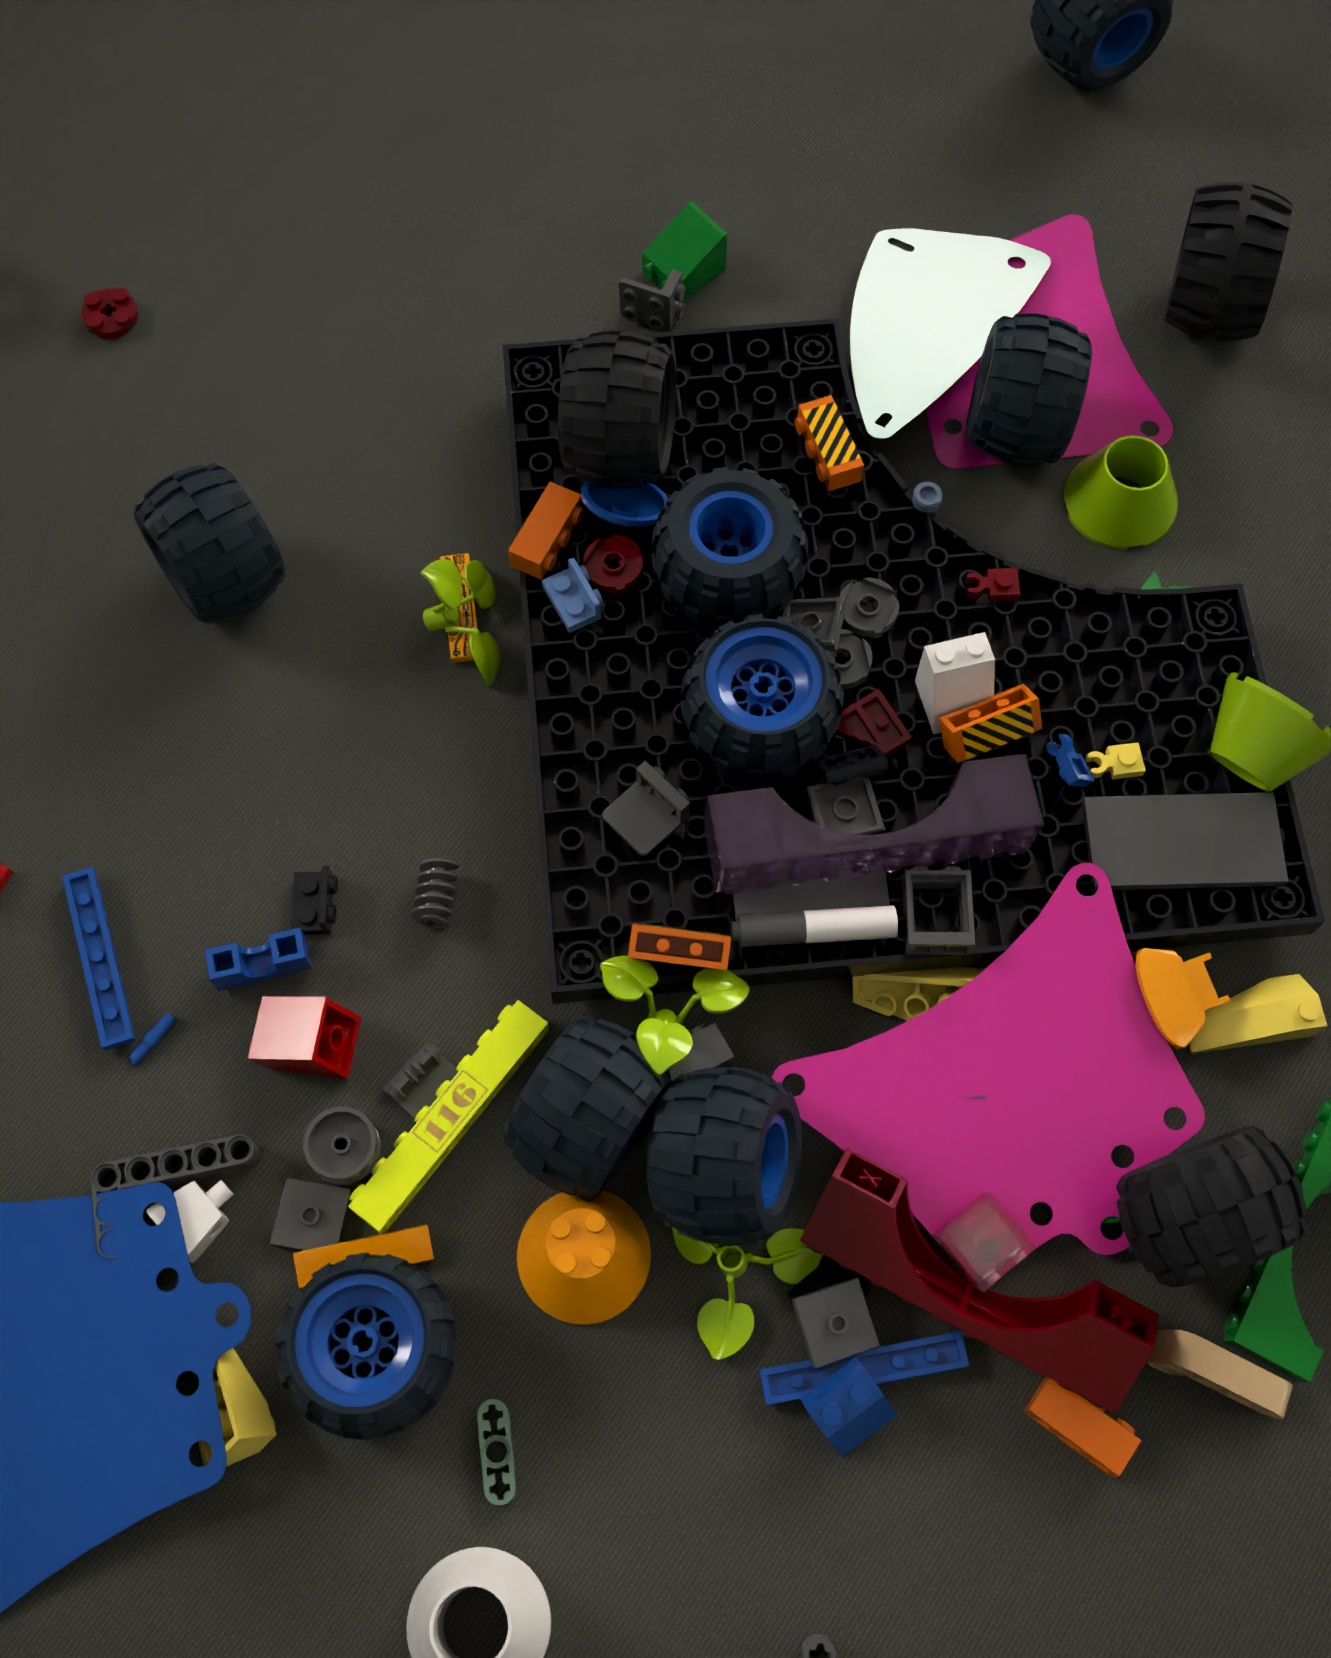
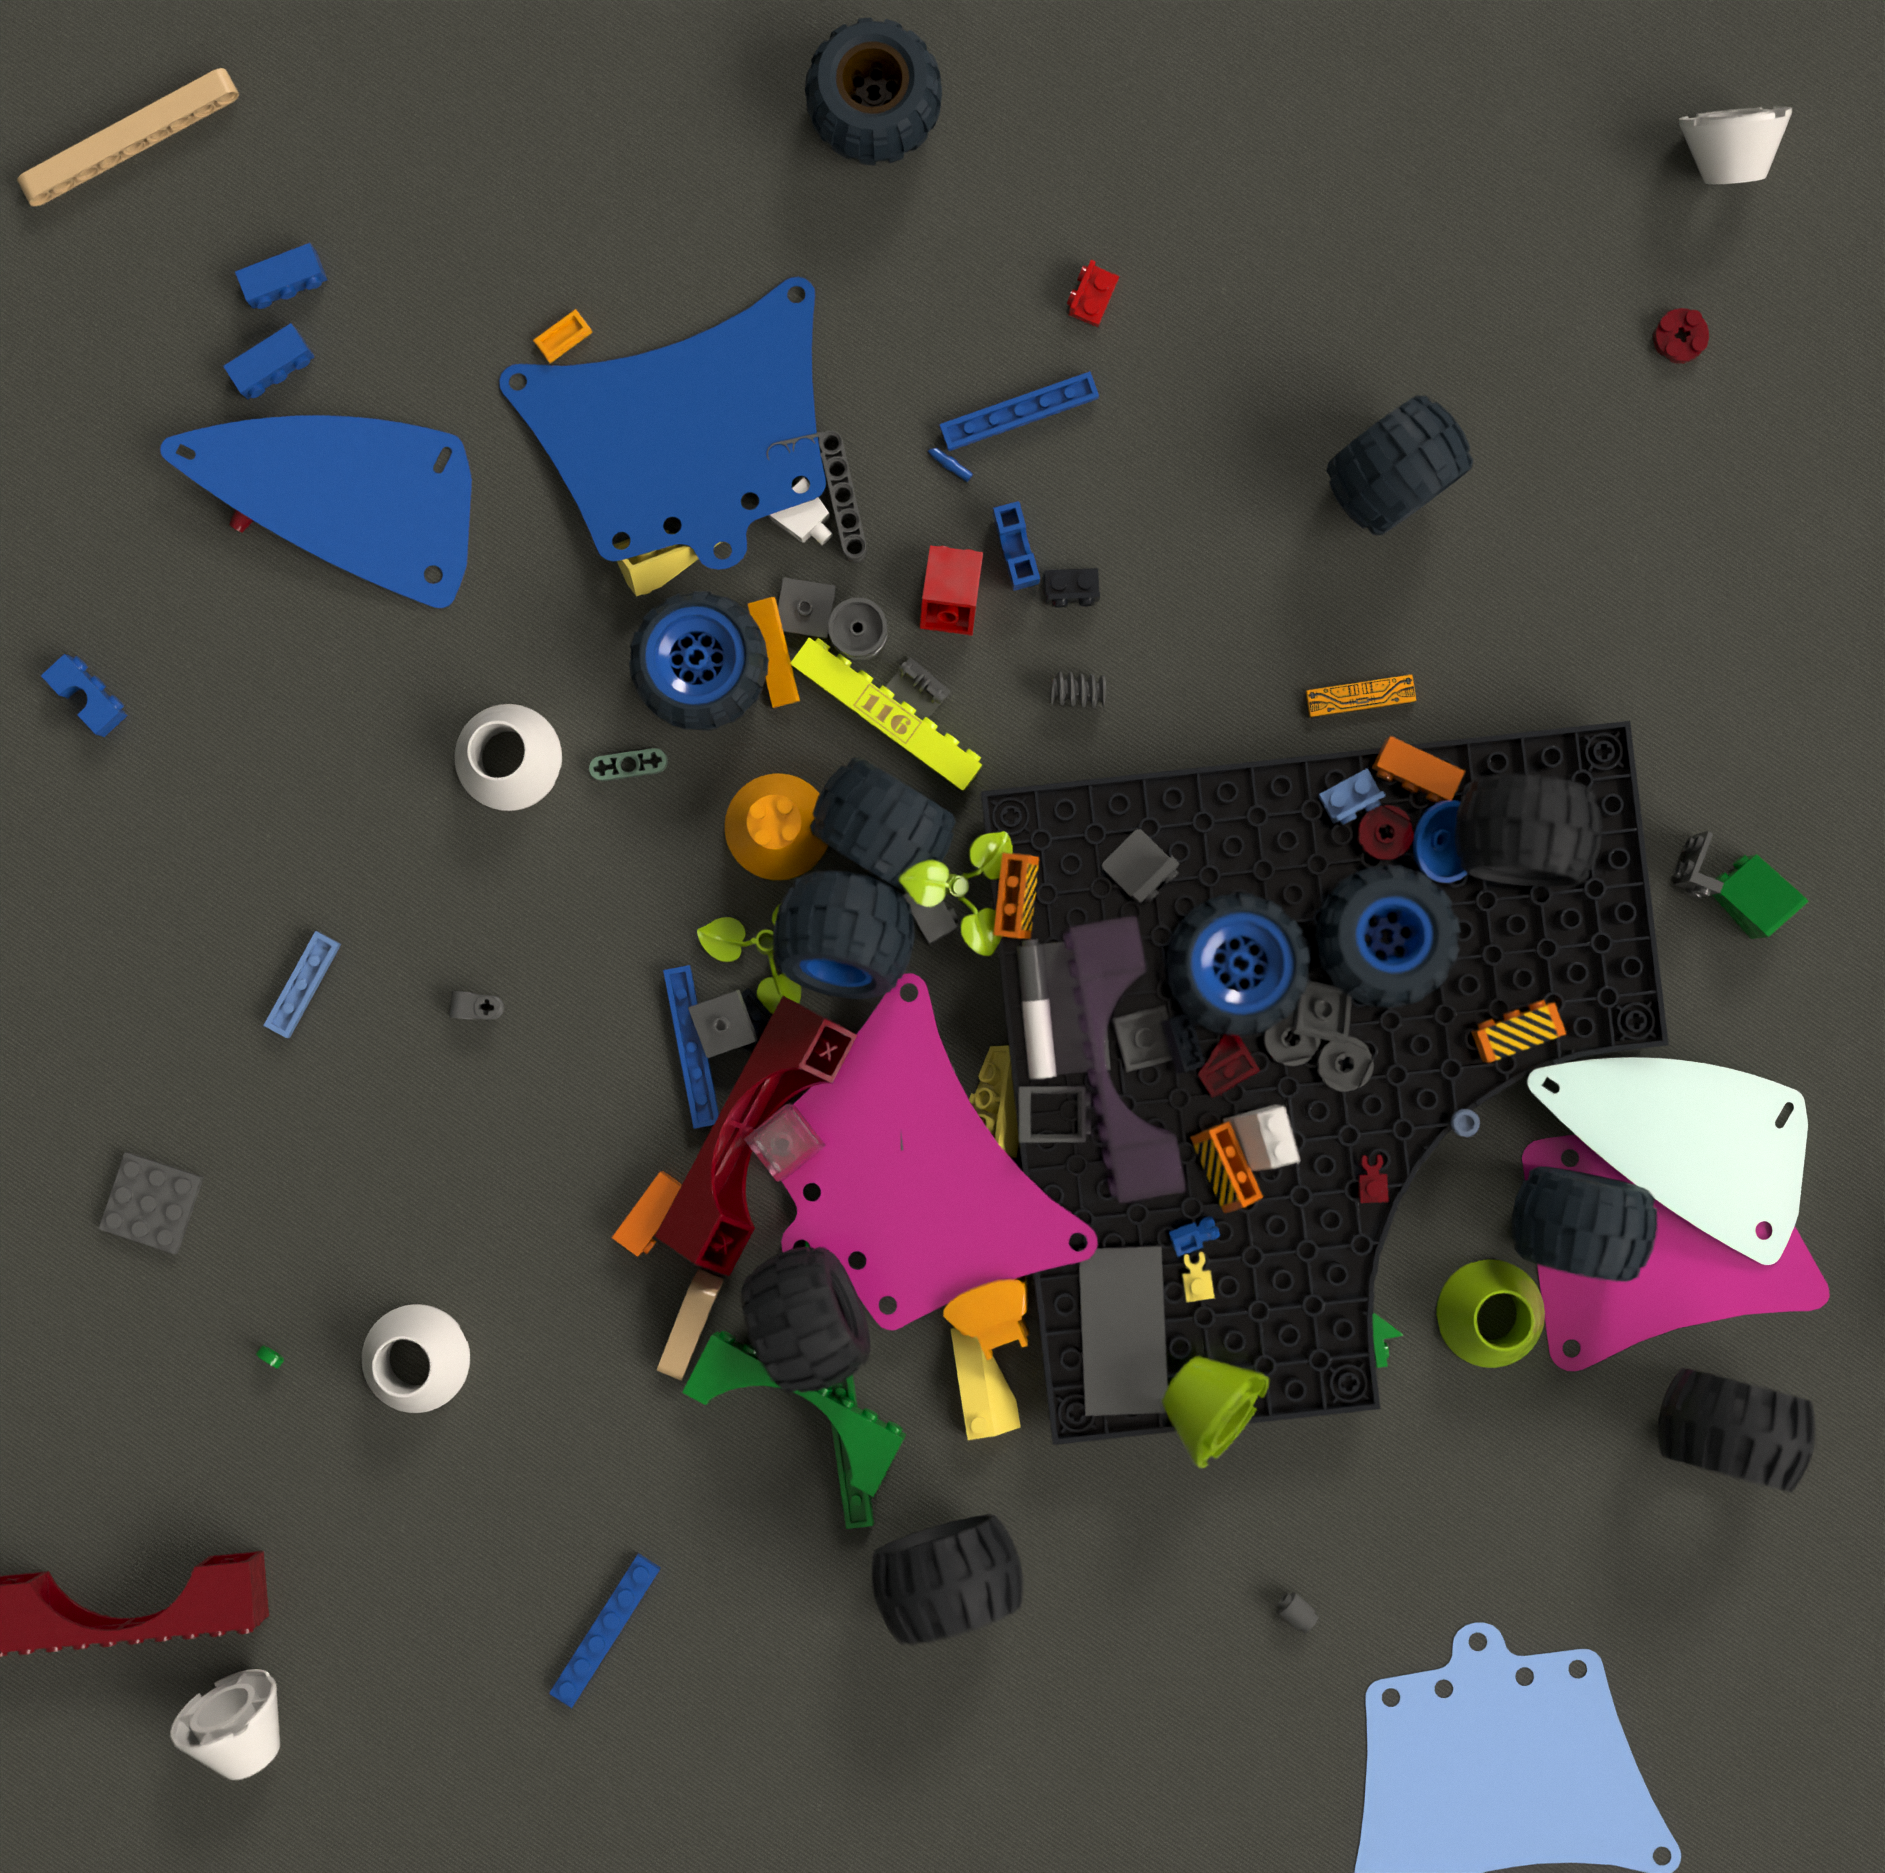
camera: 90 degrees right, 20 degrees up
(447, 583) = (1349, 681): lime plant -> none
(848, 1407) = (661, 1032): blue slope -> none

